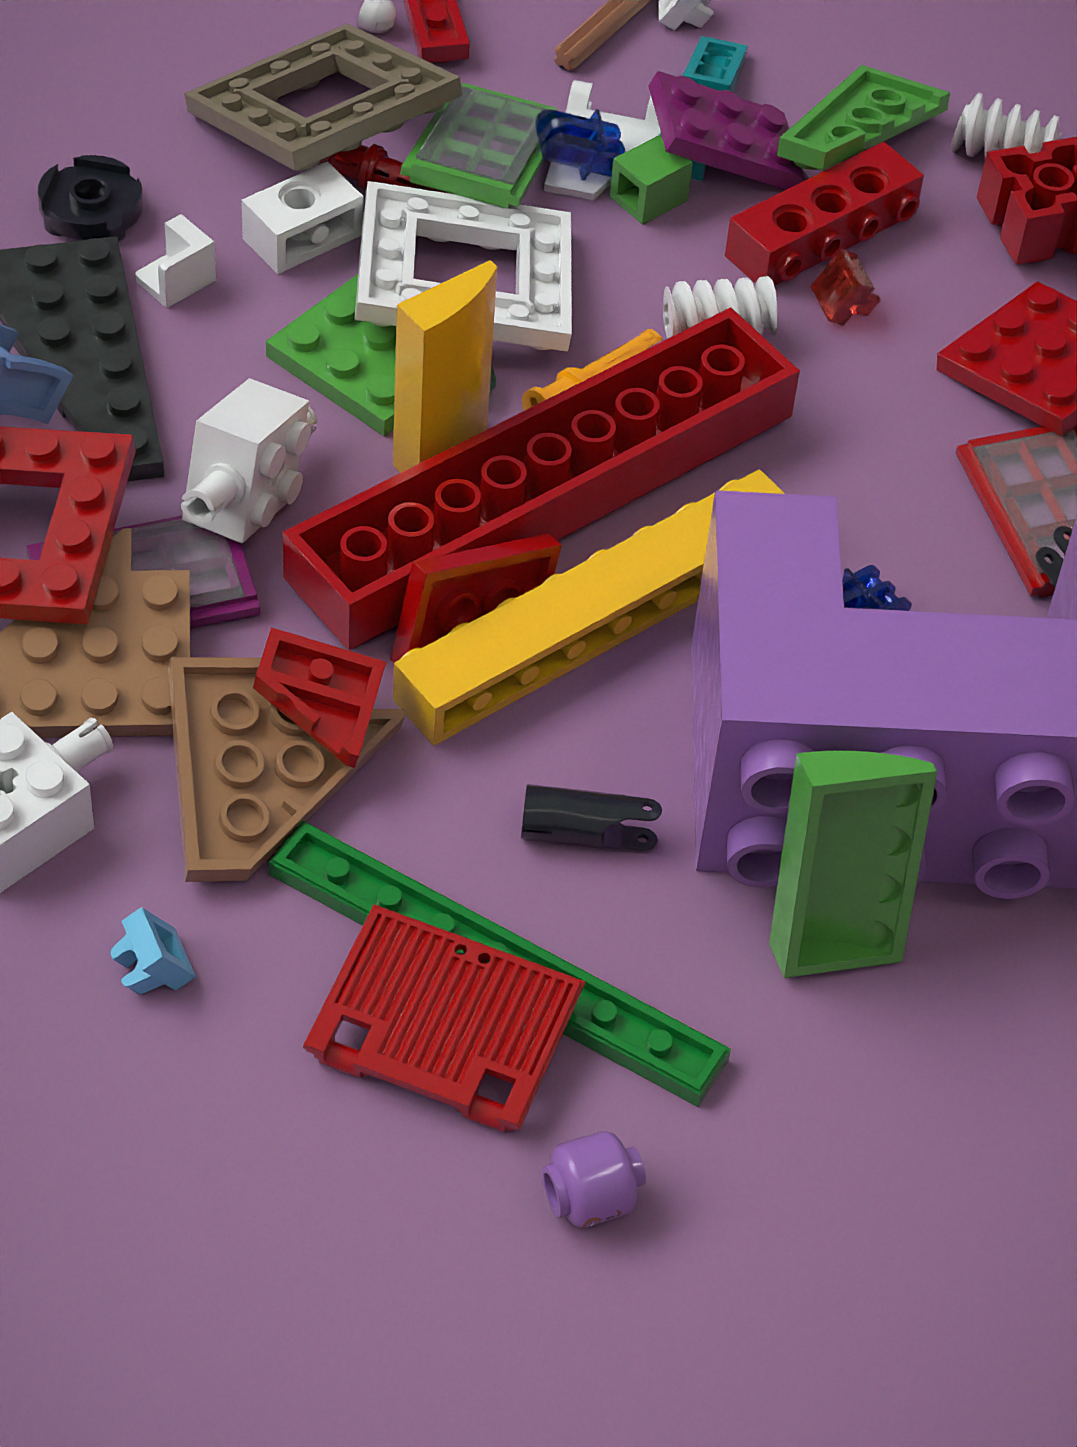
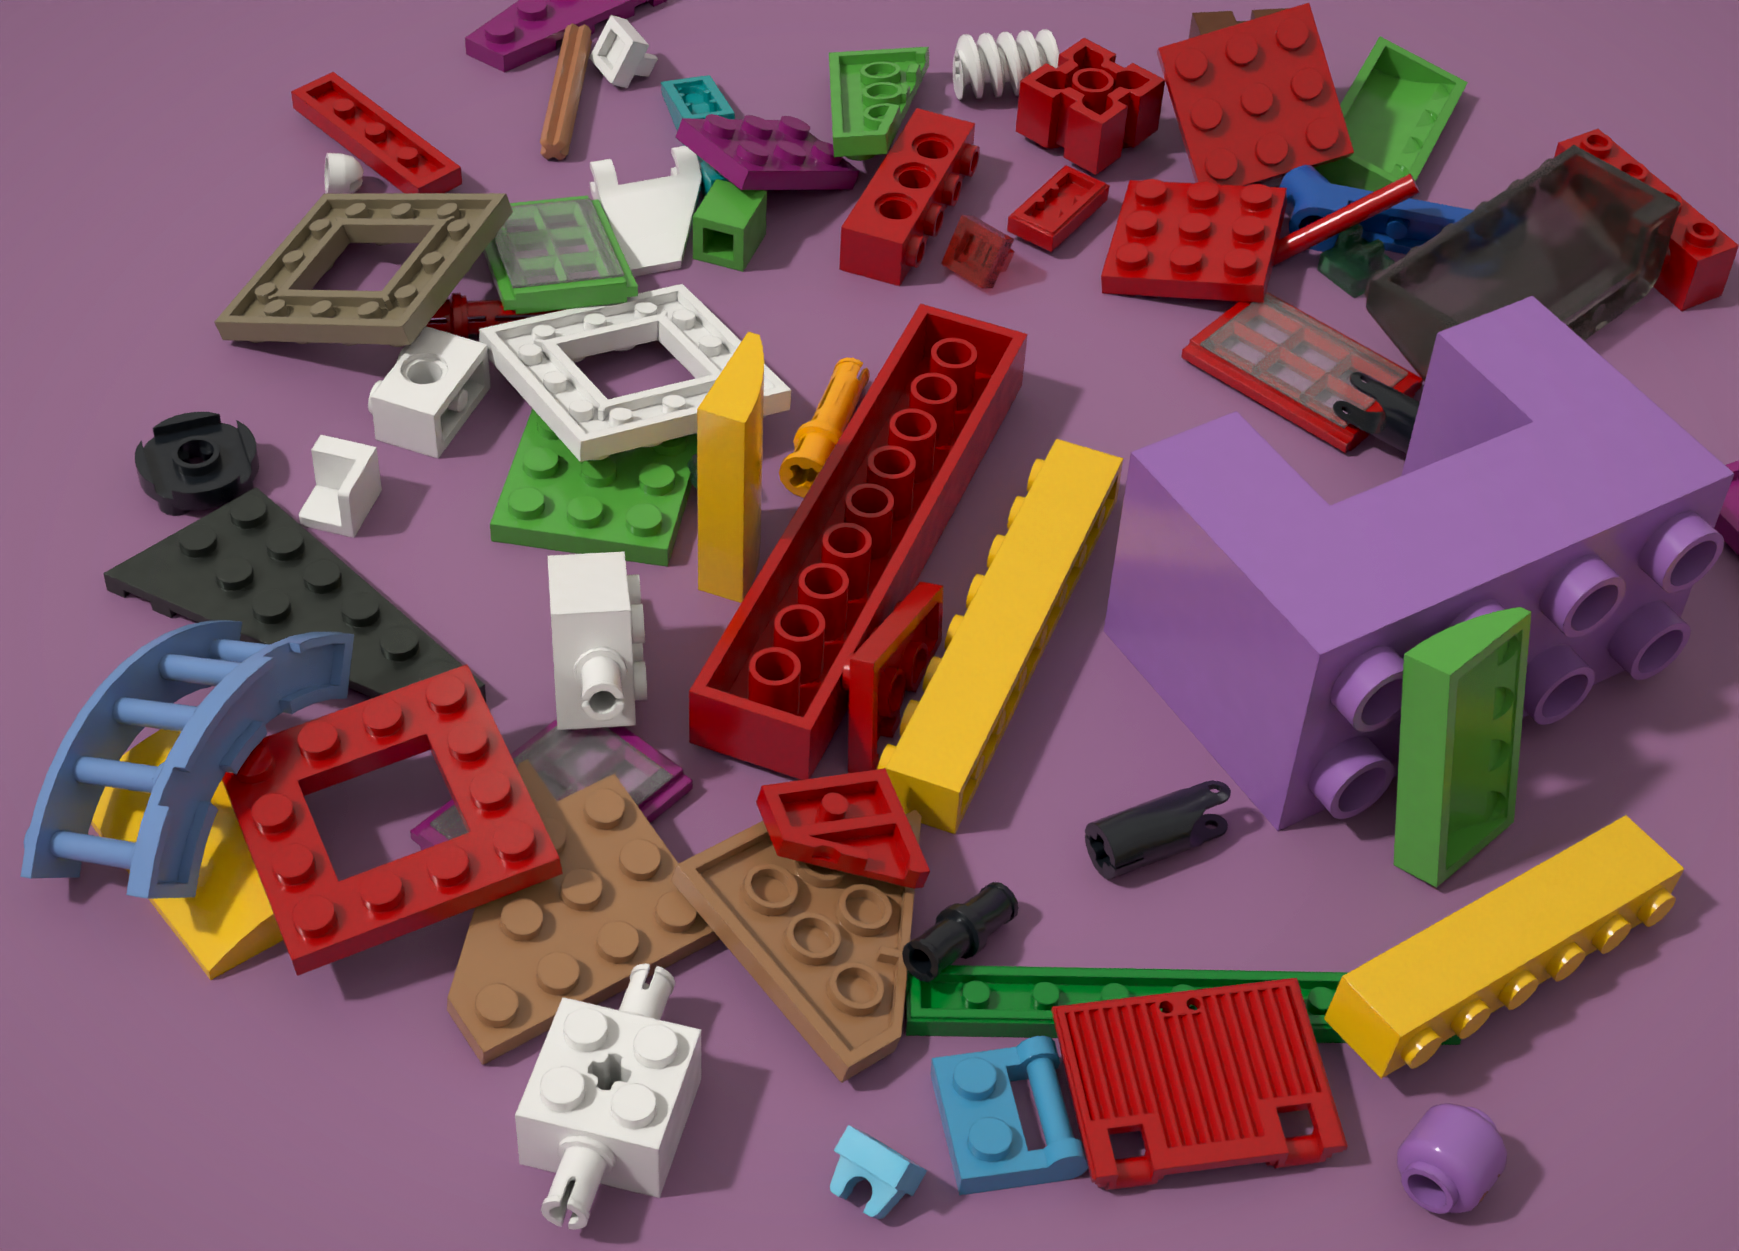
camera: 30 degrees left, 5 degrees down
(269, 962) = (984, 1122): none -> dark azure plate
(359, 815) = (960, 931): none -> black pin
(579, 141) = (645, 215): clear blue arm -> none
(687, 308) = (877, 318): white piece -> none
(783, 1044) = (1503, 947): none -> yellow brick
(951, 279) = (1058, 208): none -> red plate

